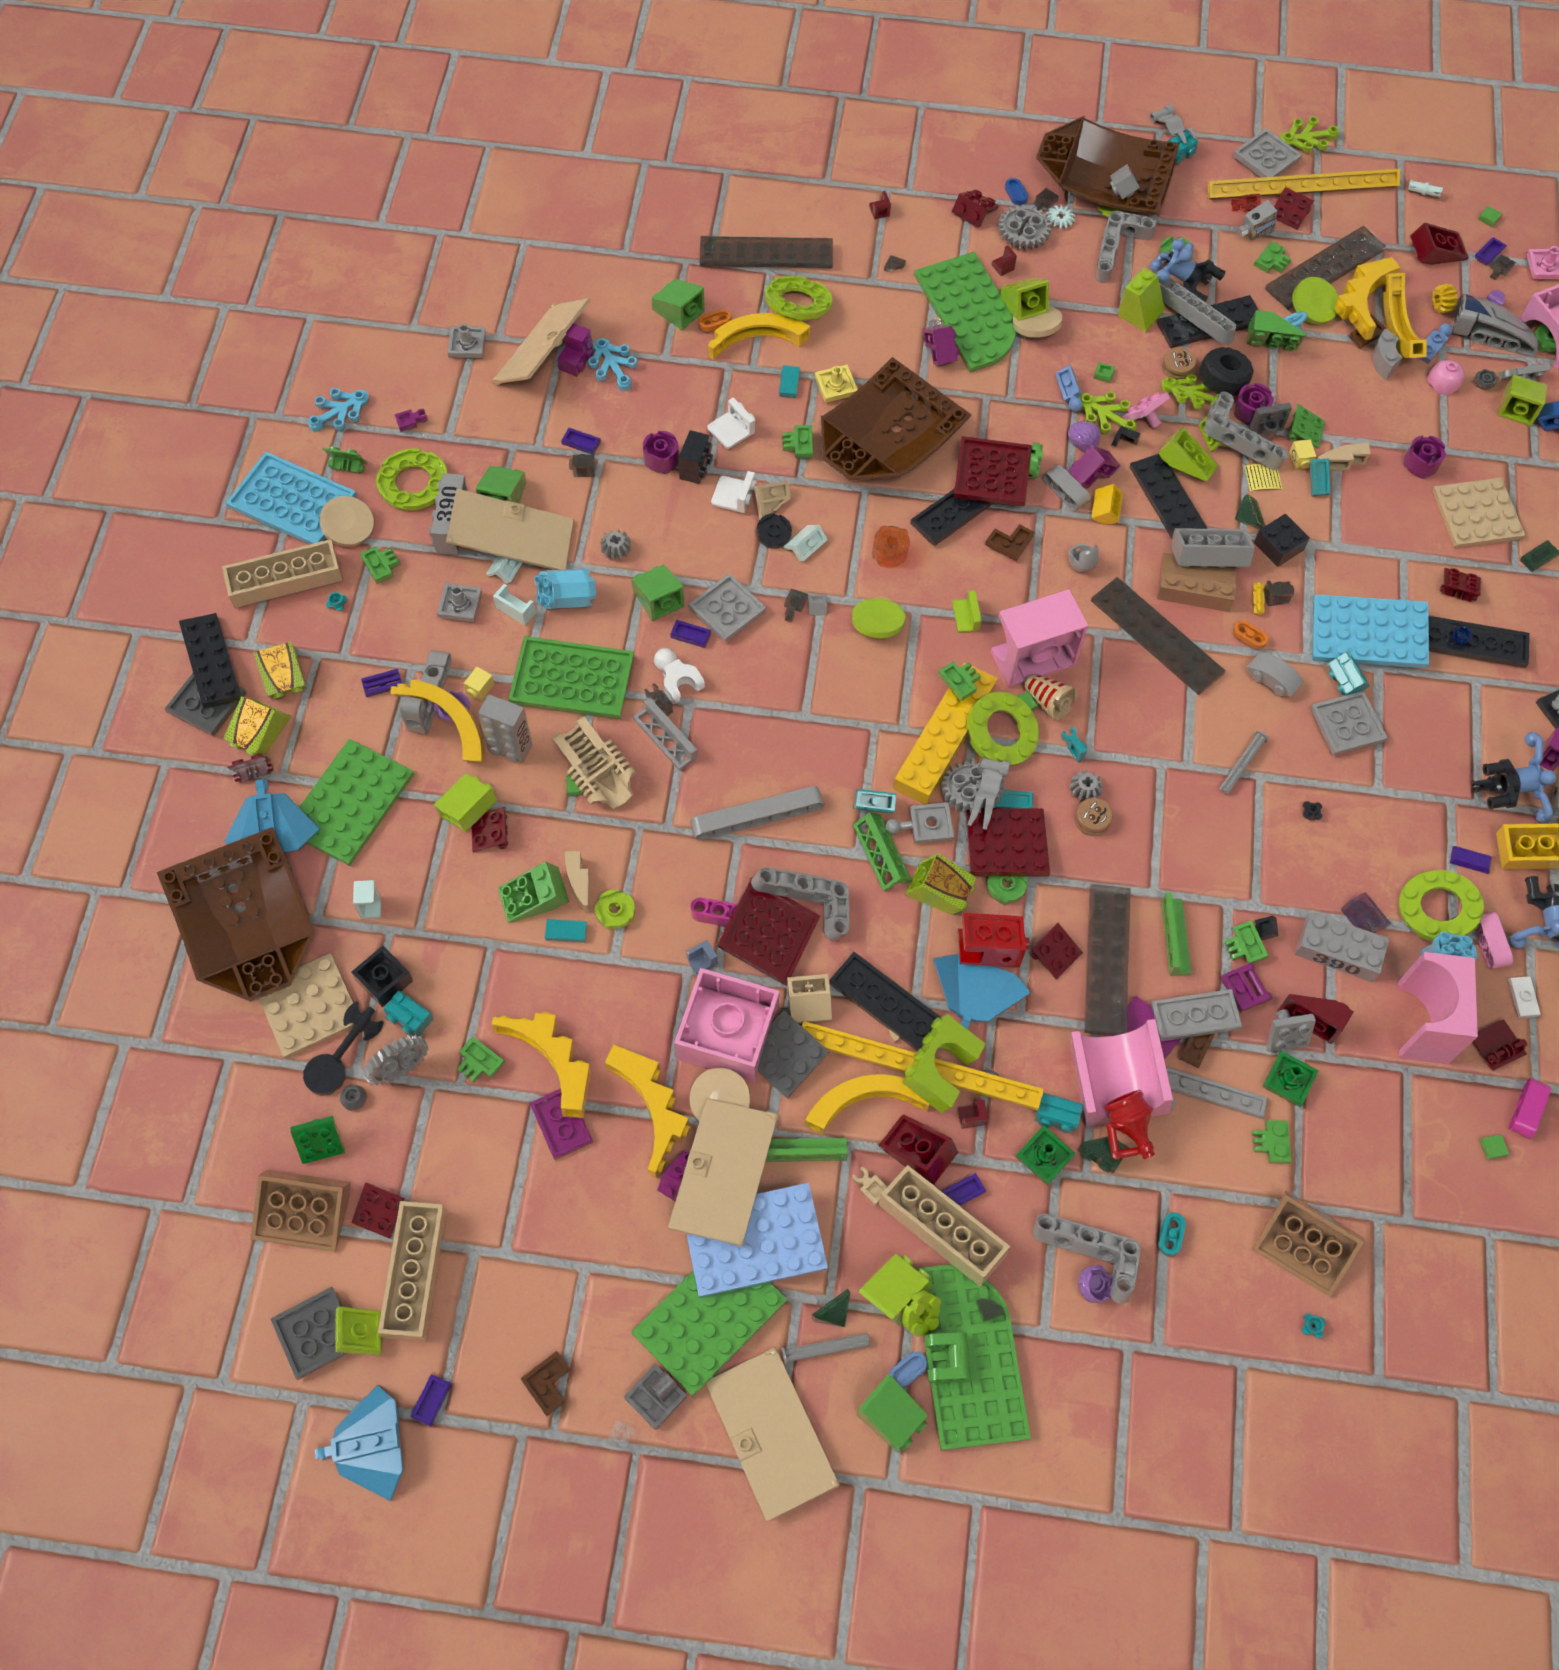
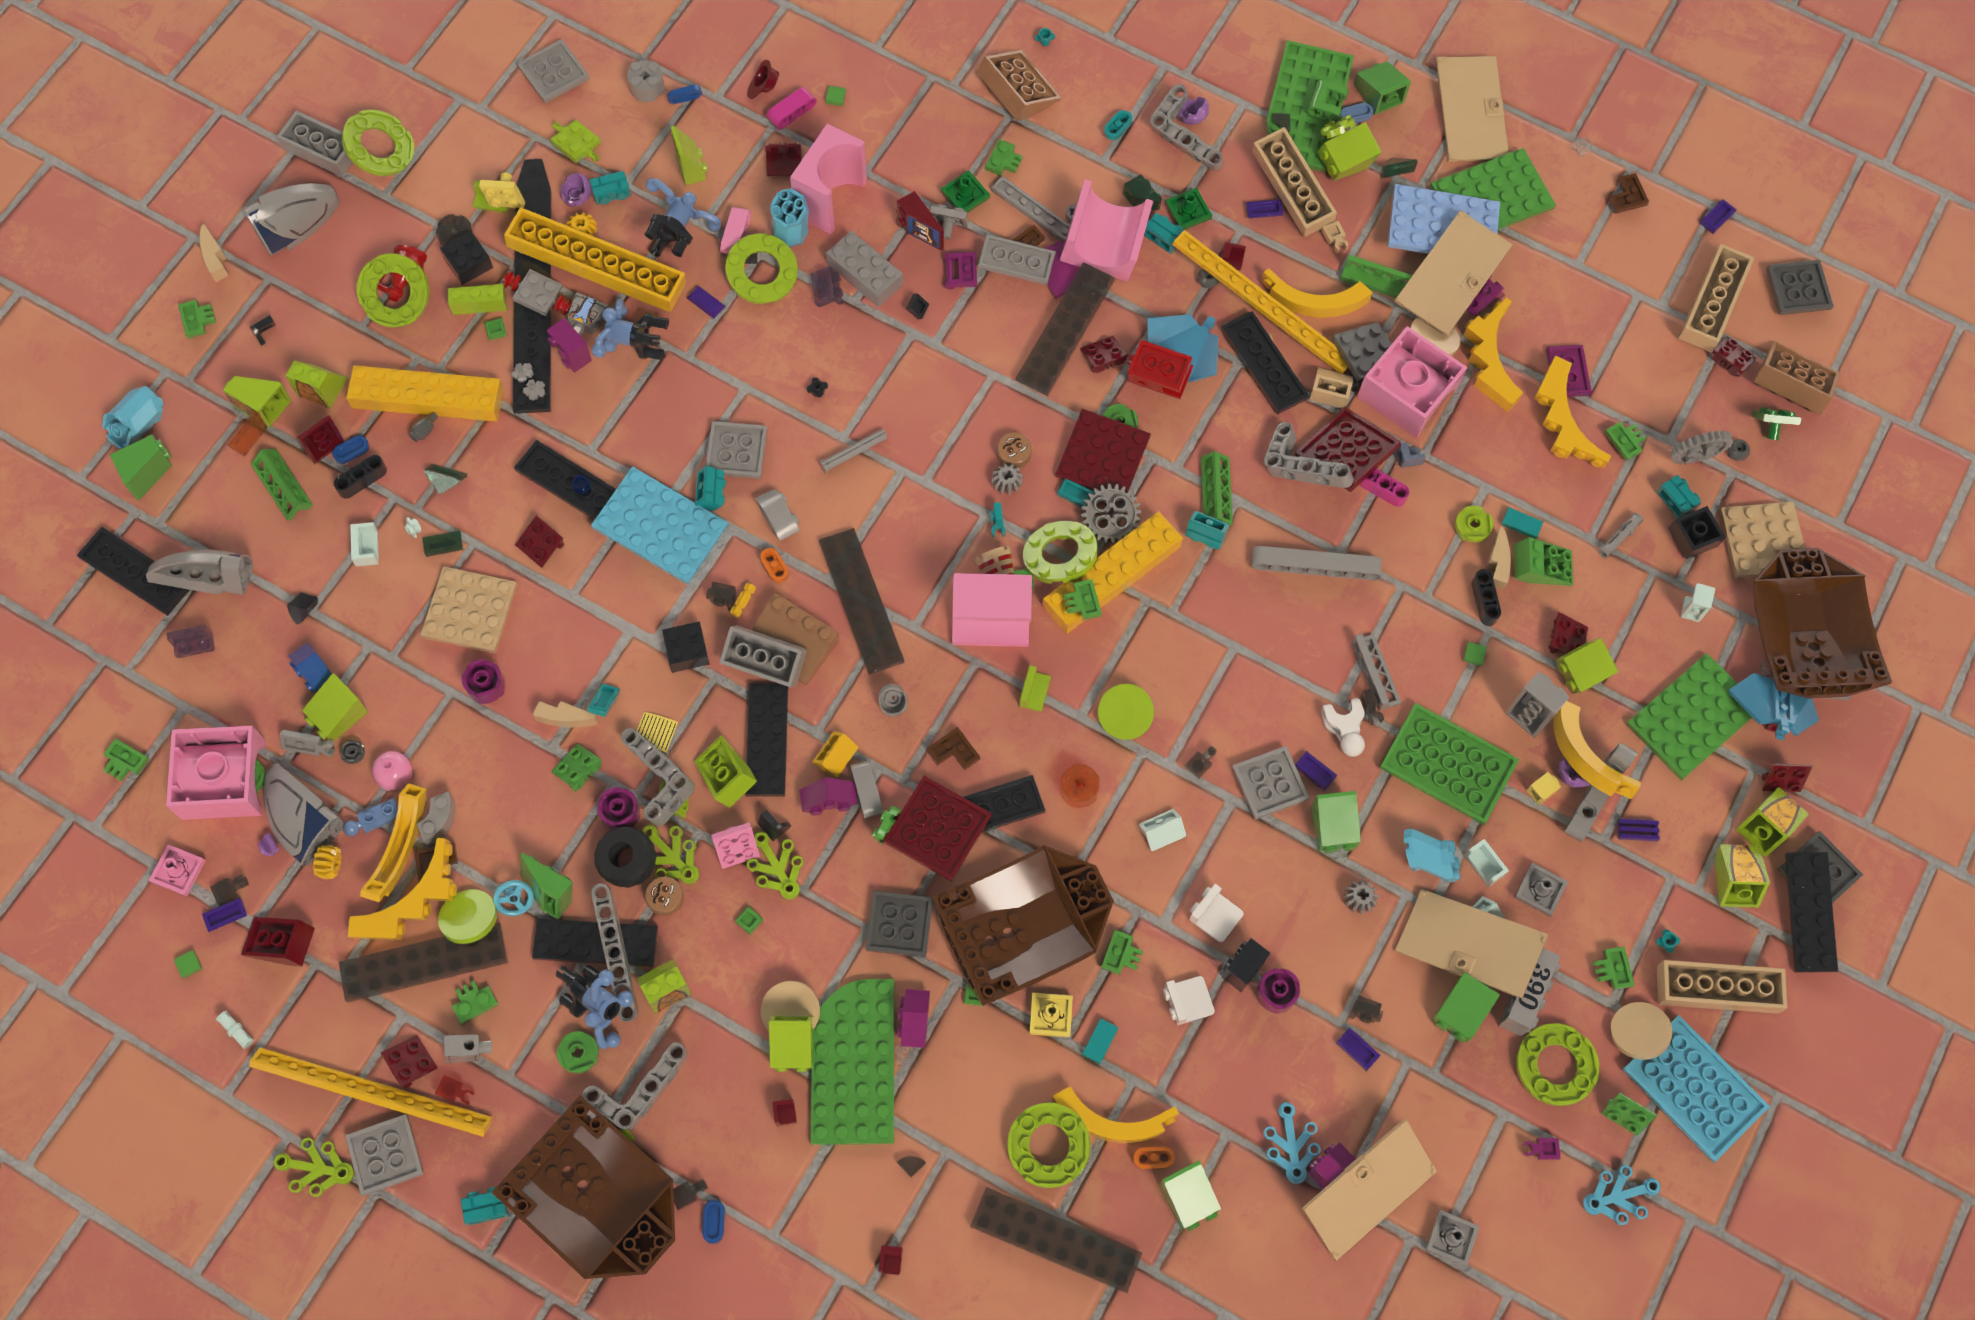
camera: 160 degrees left, 5 degrees up
(324, 1075) = (1759, 476): black tile -> none
(357, 1331) = (1767, 271): lime plate -> none
(361, 1023) = (1723, 504): black piece -> none
(369, 1445) = (1772, 204): dark azure panel -> none
(450, 971) = (1626, 529): none -> light grey pin
(579, 829) = (1486, 606): none -> black beam
(596, 765) = (1457, 652): tan connector -> none
(655, 1396) = (1550, 159): flat silver plate -> none
(771, 497) = (1179, 891): tan wing -> none
(773, 530) = (1190, 854): black tile -> none
(817, 604) = (1177, 757): light grey slope -> none
(825, 1347) = (1413, 146): light grey axle -> none
(919, 1147) = (1287, 247): dark red slope -> none
(921, 831) = (1173, 492): light grey plate -> none
(922, 1074) = (1236, 309): lime arch -> none
(941, 884) = (1180, 438): slope -> none
(973, 206) = (775, 1213): dark red bracket -> none
(987, 403) = (899, 924): none -> dark grey plate
(989, 788) = (1102, 495): light grey flag -> none
(1015, 220) = (746, 1171): light grey gear -> none
(1067, 216) = (673, 1164): light aqua gear -> none
(1069, 387) = (799, 909): medium blue plate -> none
(1084, 435) = (815, 844): medium lavender hair -> none
(1124, 182) = (591, 1157): light grey brick -> none
(1130, 1116) = (1118, 192): red piece -> none
(1172, 121) = (469, 1248): light grey flag -> none
(1175, 936) = (996, 329): bright green fence -> none
(1246, 943) = (941, 301): bright green hinge -> none
(1250, 513) = (695, 690): clear green slope -> none
(1270, 420) = (615, 778): flat silver plate -> none
(1301, 454) = (603, 734): light yellow brick -> none
(1524, 997) = (738, 185): white plate -> none

